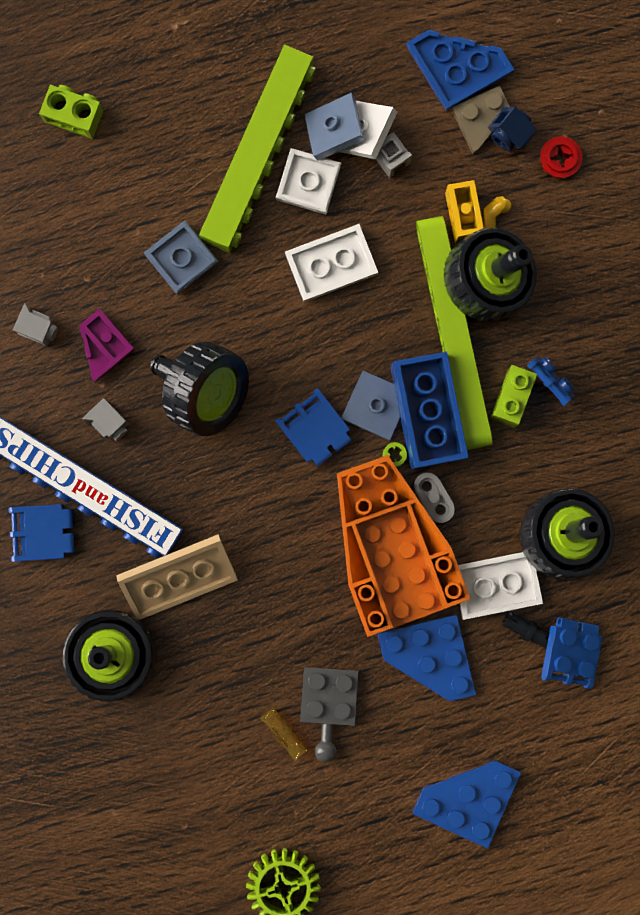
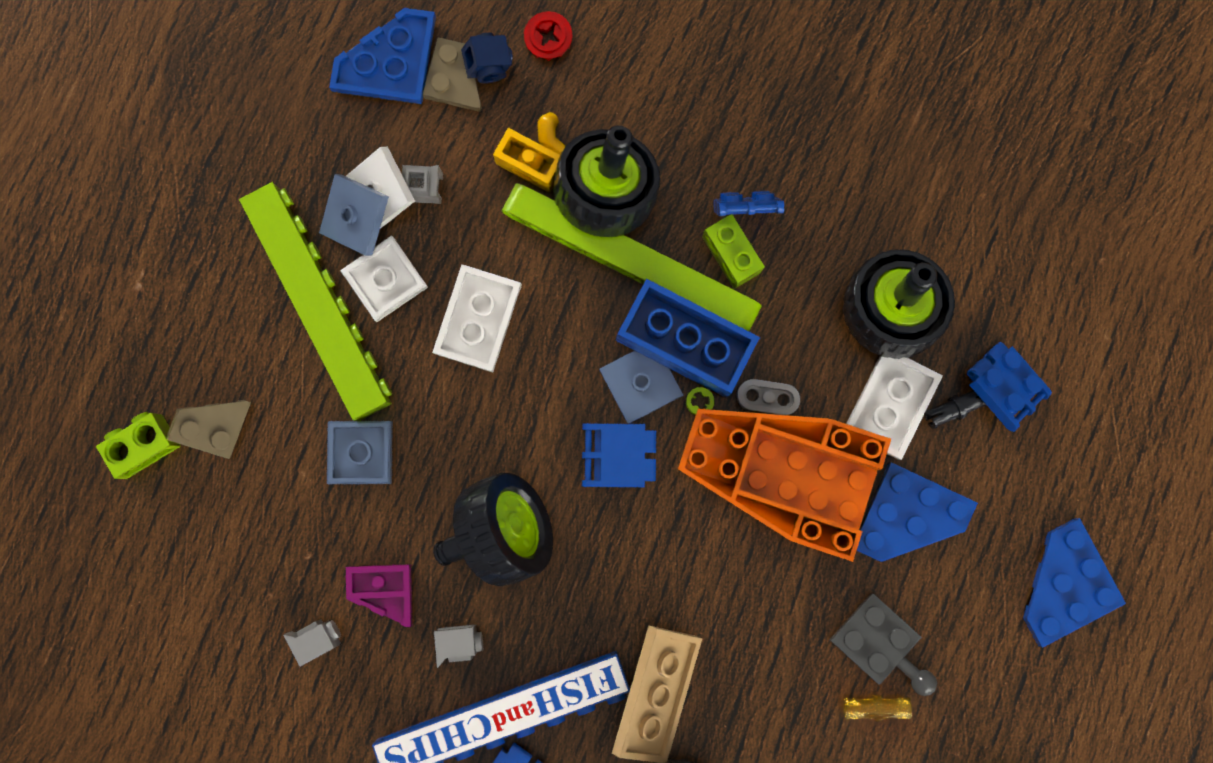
camera: 50 degrees left, 0 degrees up
(120, 147) = (209, 427): none -> dark tan wing

